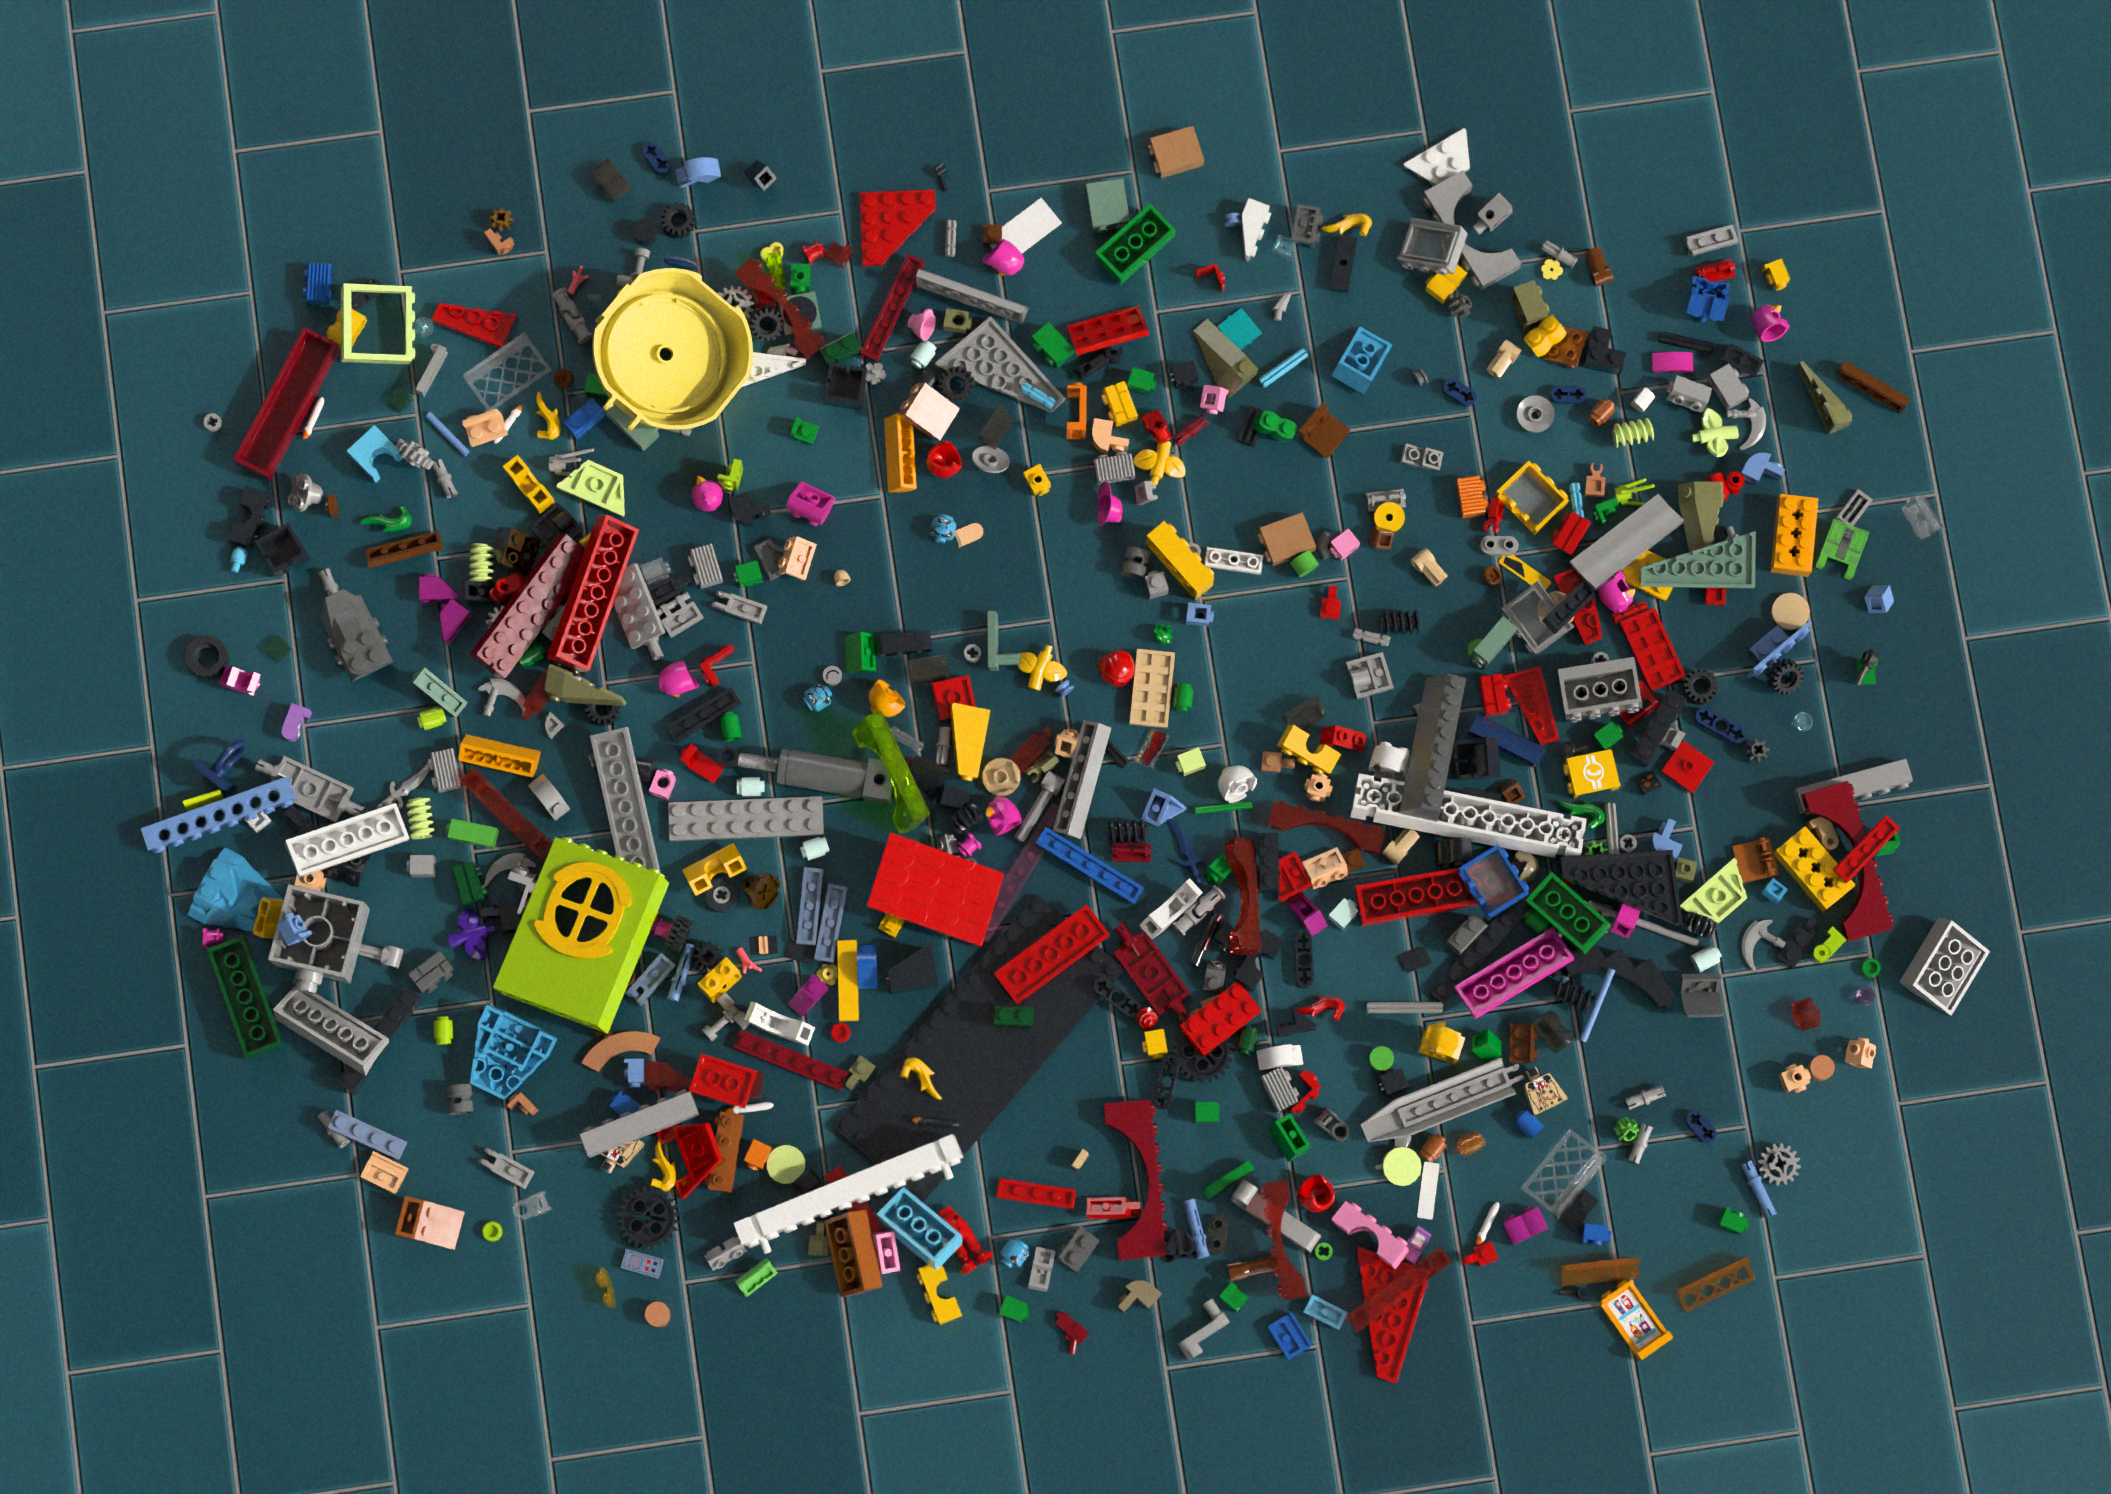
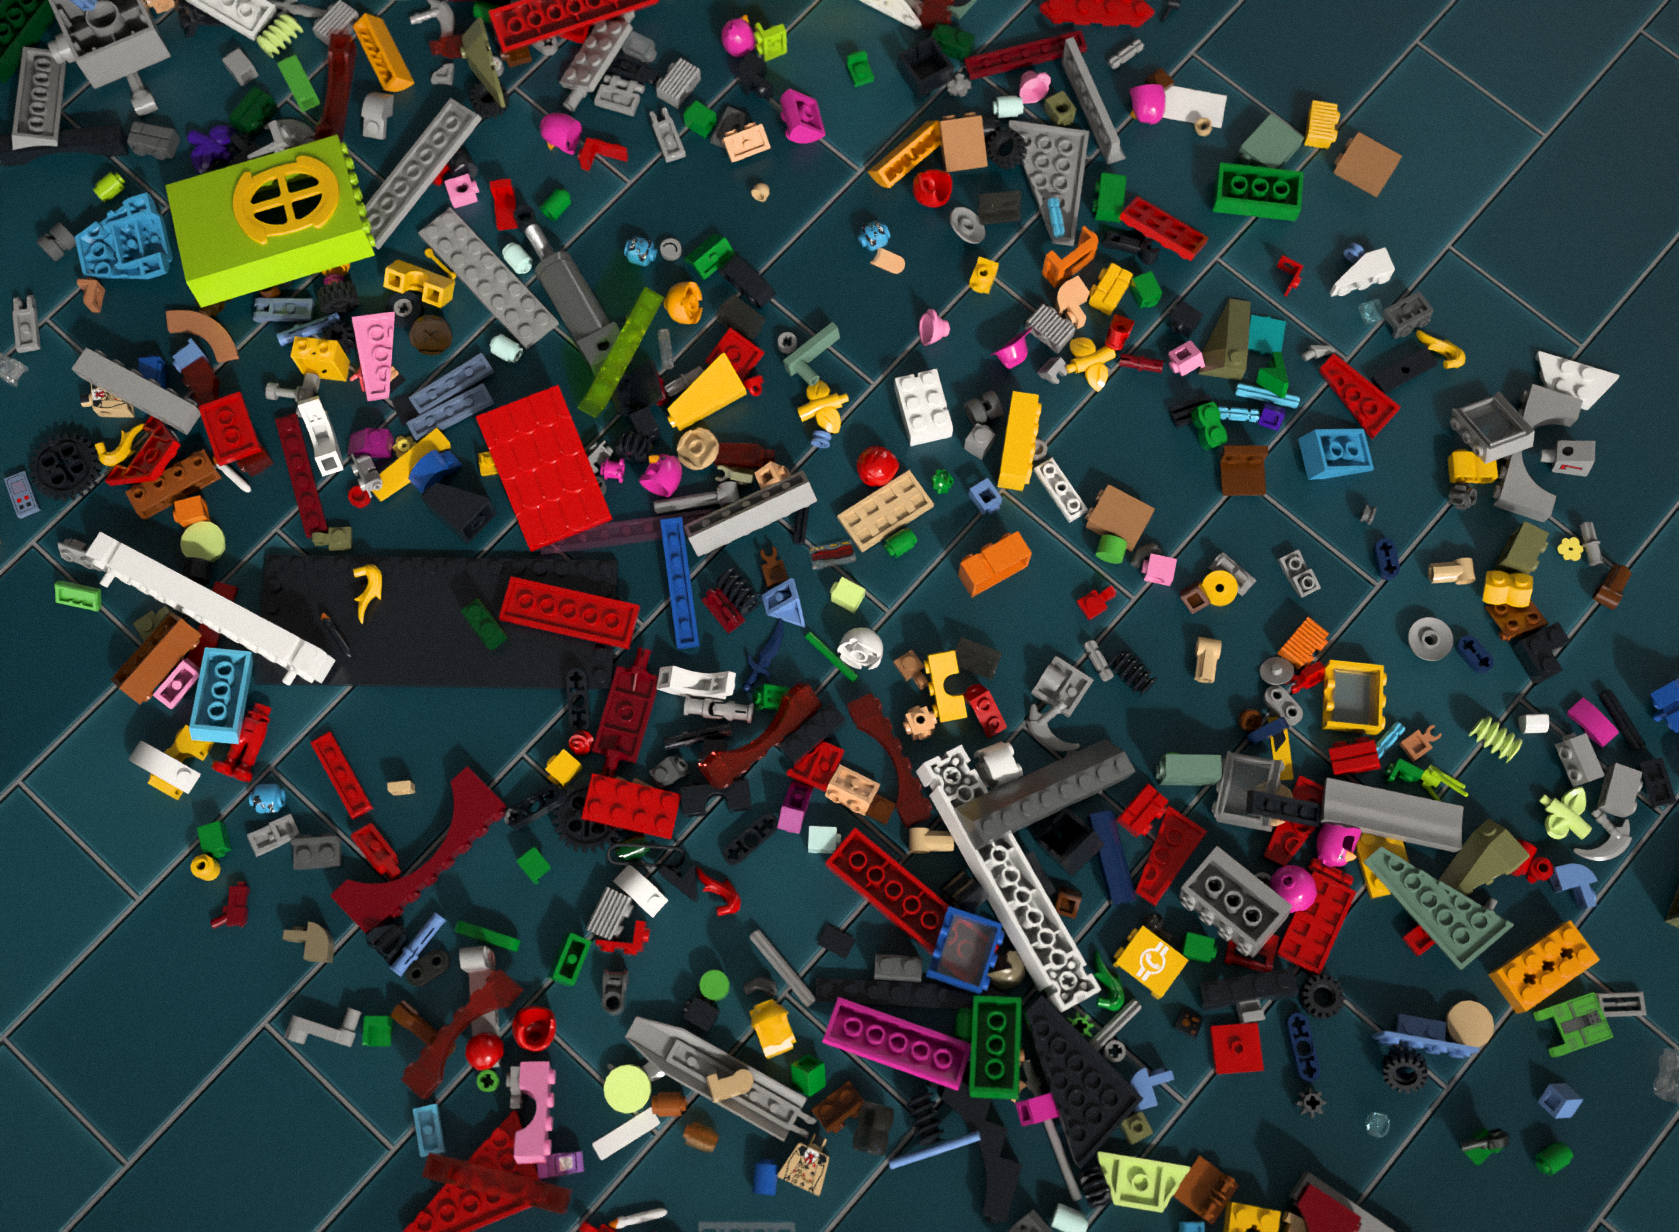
camera: 55 degrees right, 5 degrees down
(690, 844) = (430, 254): none -> yellow hinge
(703, 715) = (549, 176): black plate -> none
(743, 940) = (374, 347): none -> bright pink wing
(824, 1014) = (362, 467): none -> light grey hinge
(935, 1304) = (164, 767): none -> white arch
(985, 701) = (754, 381): none -> red tile
(1030, 1334) = (205, 867): none -> yellow brick
(1047, 547) = (932, 327): none -> bright pink piece
(1049, 237) = (1200, 124): none -> tan hinge
(1100, 602) = (923, 407): none -> white piece
(1120, 155) = (1321, 124): none -> yellow brick
(1132, 797) = (774, 570): none -> reddish brown plate
(1251, 648) = (994, 563): none -> orange piece
(1255, 1029) = (645, 846): none -> black piece
(1277, 352) = (1274, 376): none -> green slope
(1280, 398) = (1239, 414): none -> medium azure axle
(1289, 1336) = (380, 1115): blue plate -> none
(1301, 378) = (1271, 416): none -> dark purple tile
(1305, 1236) = (484, 1050): none -> red hair
(1337, 308) = (1361, 397): none -> red wing
(1339, 1233) = (513, 1082): none -> light grey plate
(1386, 714) = (1040, 729): none -> light grey piece
(1403, 1029) = (763, 984): none -> dark grey arm
(1457, 1094) = (730, 1086): none -> tan leg
(1473, 529) = (1276, 671): none -> light grey piece
(1508, 571) = (1267, 731): none -> dark blue beam
(1601, 412) = (1488, 695): dark orange brick -> none
(1620, 643) = (1294, 886): none -> dark pink cylinder
(1908, 634) = (1553, 1158): none -> green brick

